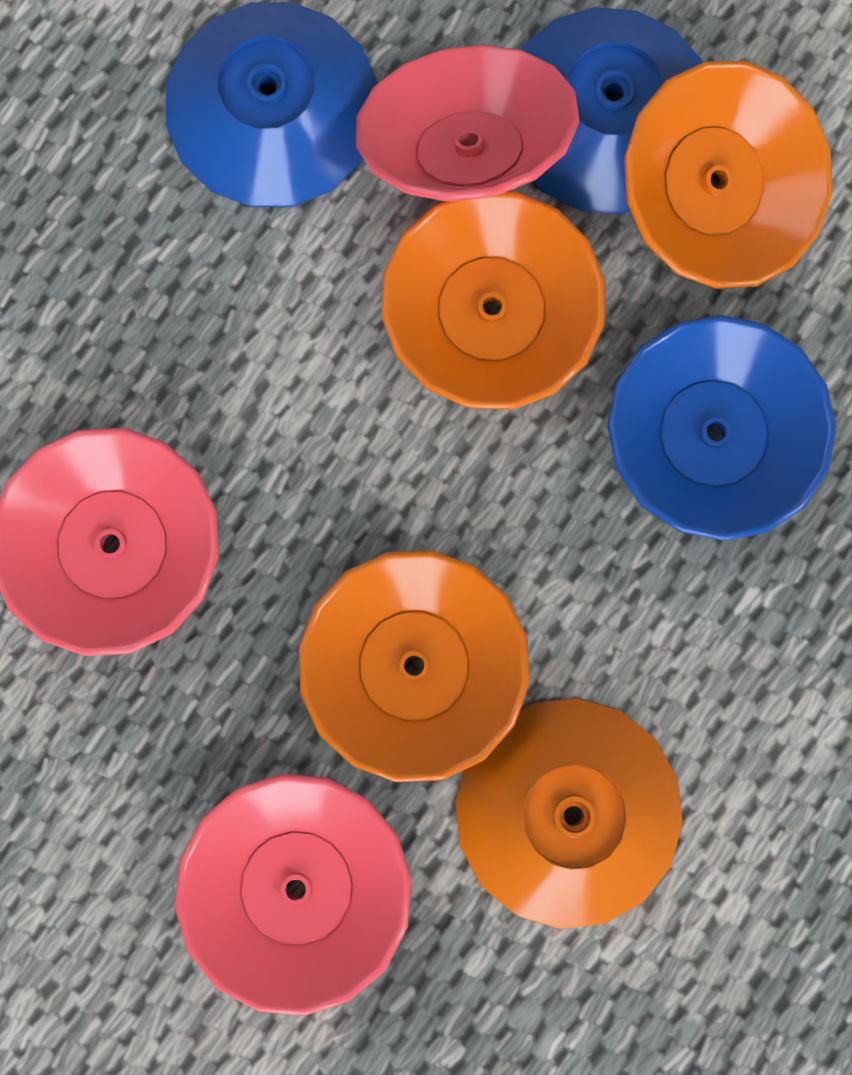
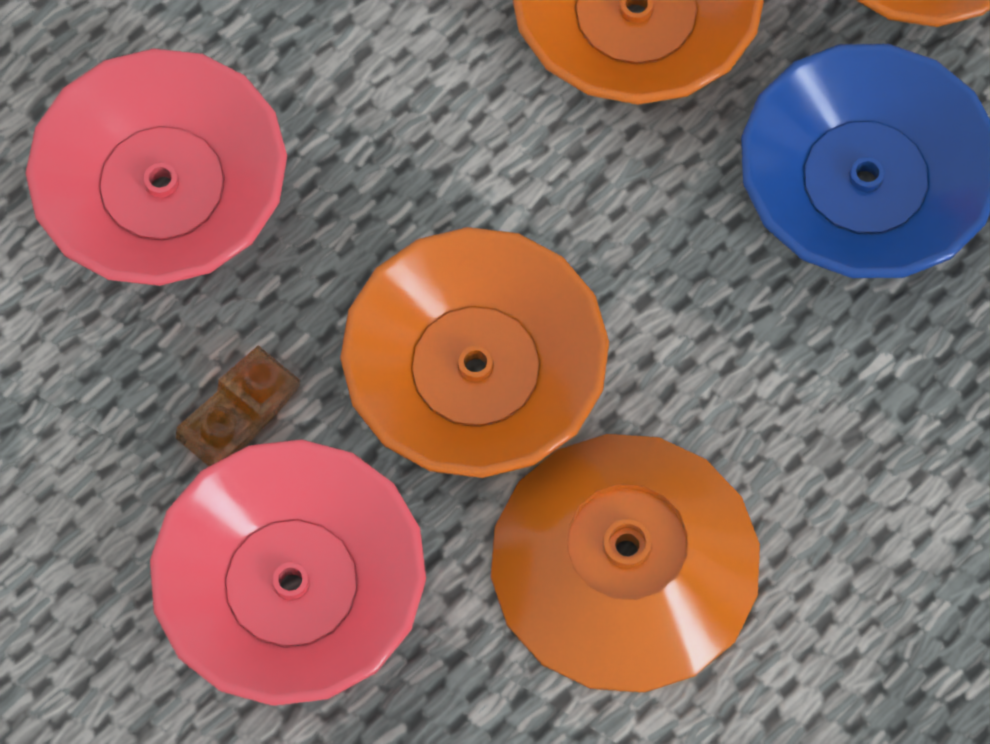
camera: 15 degrees right, 15 degrees down
(220, 739) = (239, 409): none -> clear orange slope

